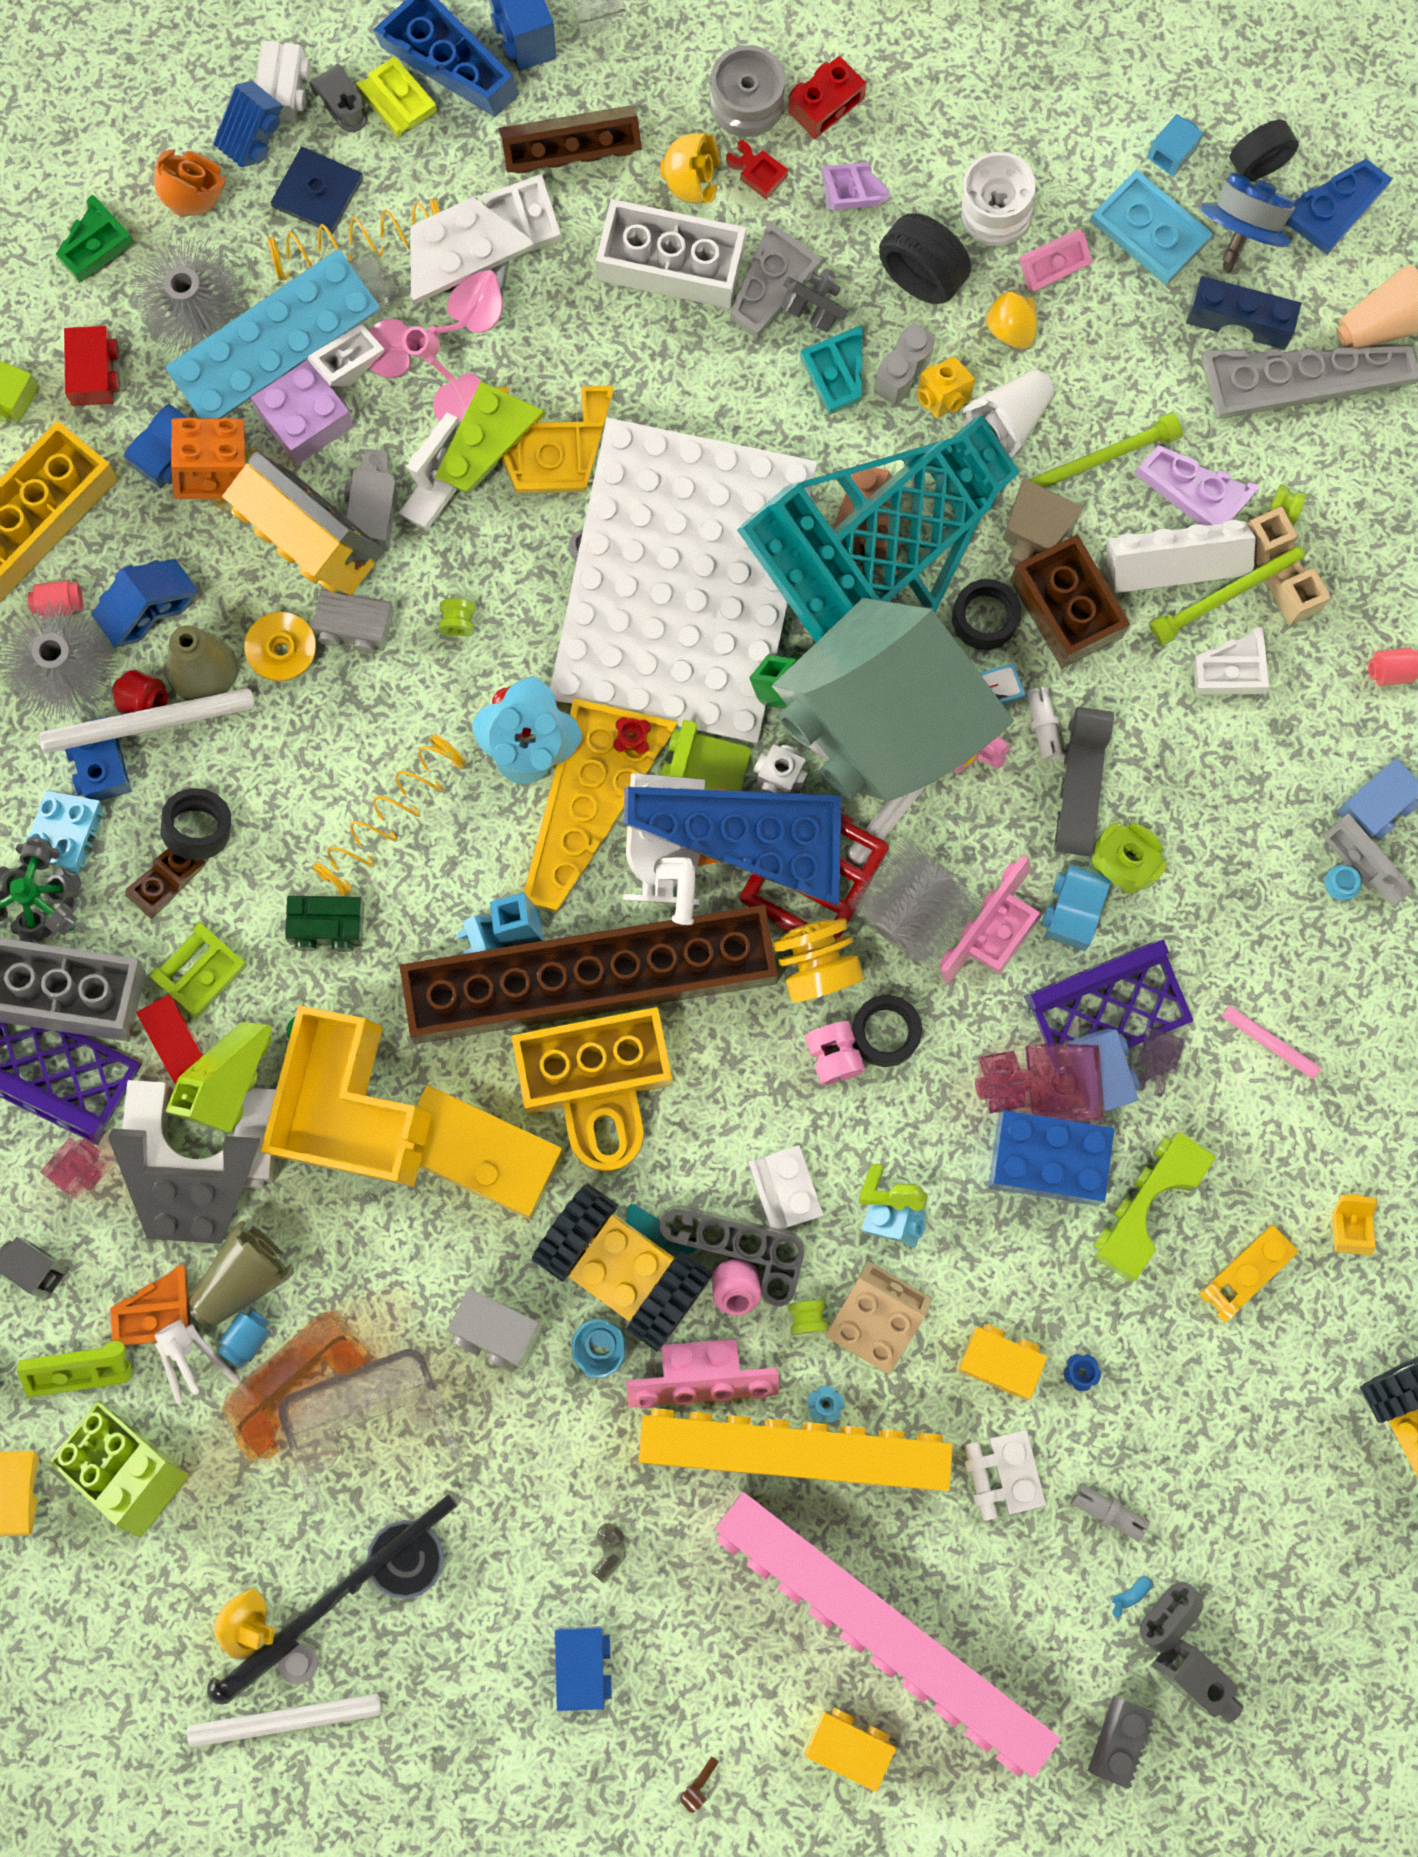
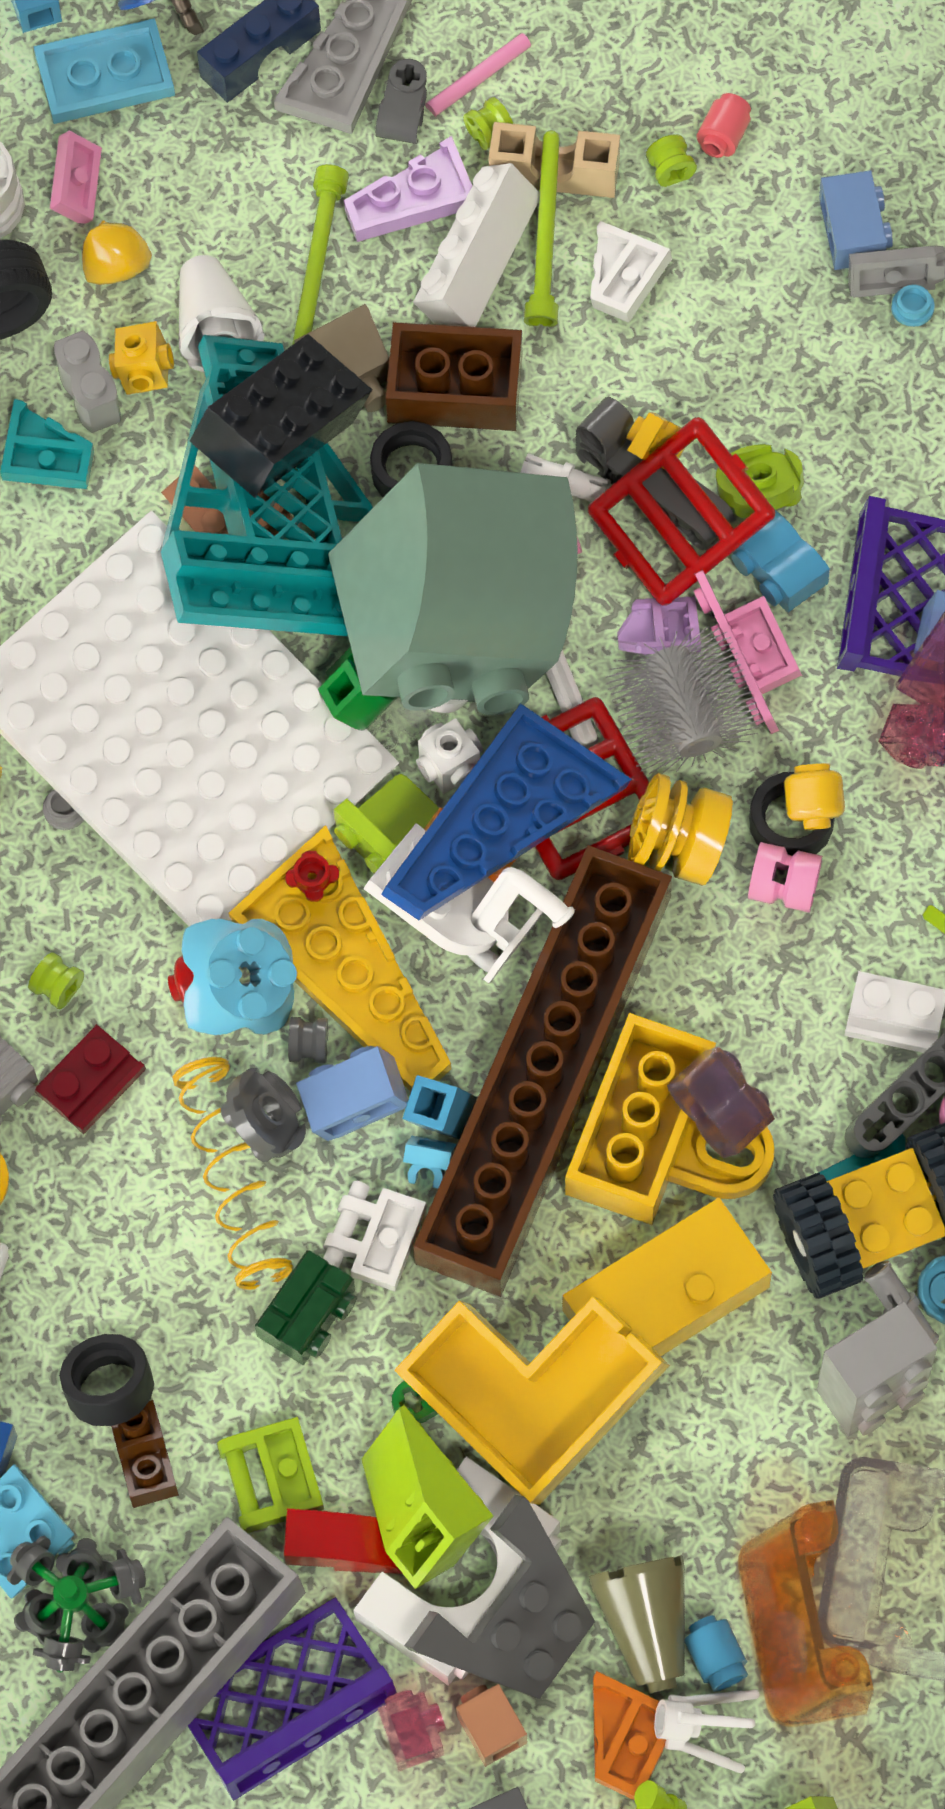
camera: 50 degrees left, 10 degrees down
(108, 1216) = (490, 1723): none -> nougat brick
(404, 683) = (90, 1079): none -> dark red plate
(408, 943) = (387, 1239): none -> white plate
(423, 802) = (270, 1133): none -> dark grey plate
(492, 858) = (352, 1093): none -> medium blue brick
(516, 806) = (308, 1039): none -> dark grey wheel
(562, 1319) = (893, 1292): none -> light grey pin
(627, 1108) = (721, 1101): none -> brick
(901, 1037) = (814, 795): none -> yellow head
(949, 502) = (280, 415): none -> black brick
(972, 857) = (651, 621): none -> lavender slope
(1065, 862) = (729, 537): none -> red bar
(1105, 767) = (649, 434): none -> yellow bracket
(1257, 439) = (403, 105): none -> dark grey piece
(1323, 475) = (478, 74): none -> bright pink bar
(1343, 646) = (671, 160): none -> lime wheel

